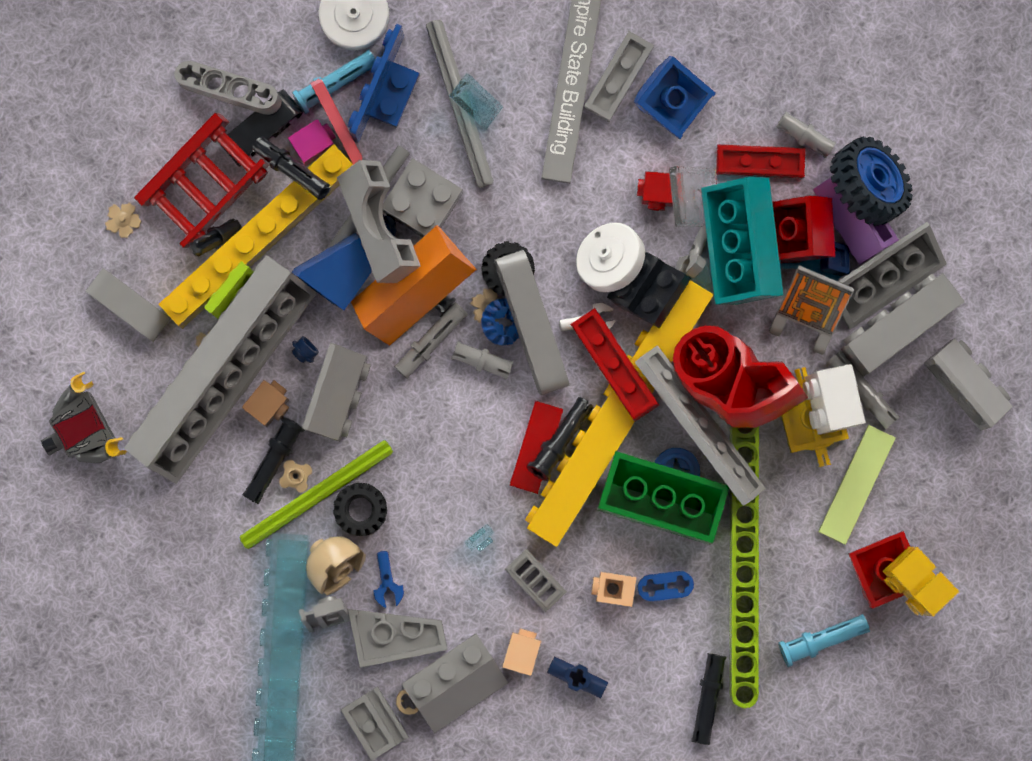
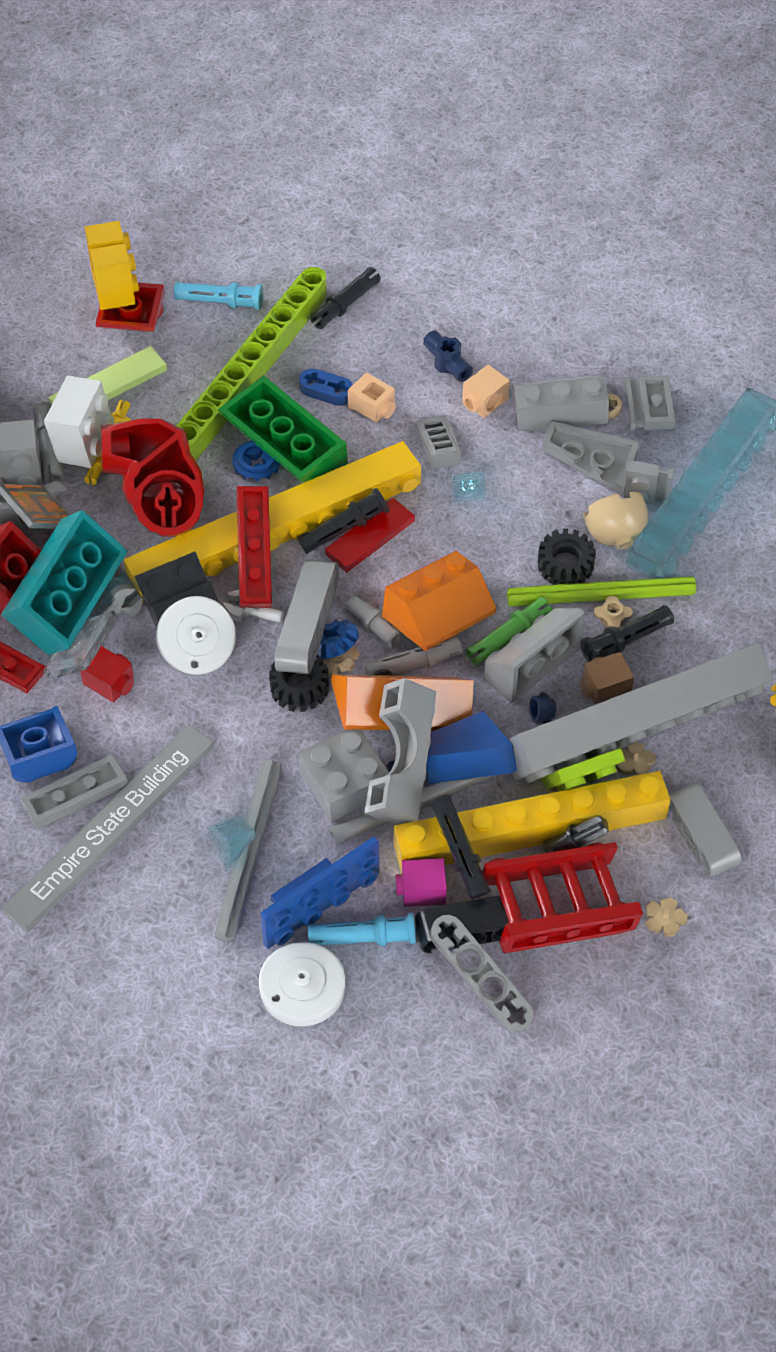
camera: 150 degrees left, 30 degrees down
(336, 120) = (385, 881): coral tile -> none
(366, 417) = (519, 623): none -> bright green pin
(386, 581) = (575, 497): blue bar -> none
(434, 396) = (438, 601): none -> orange slope
(700, 426) = (212, 460): light grey plate -> none

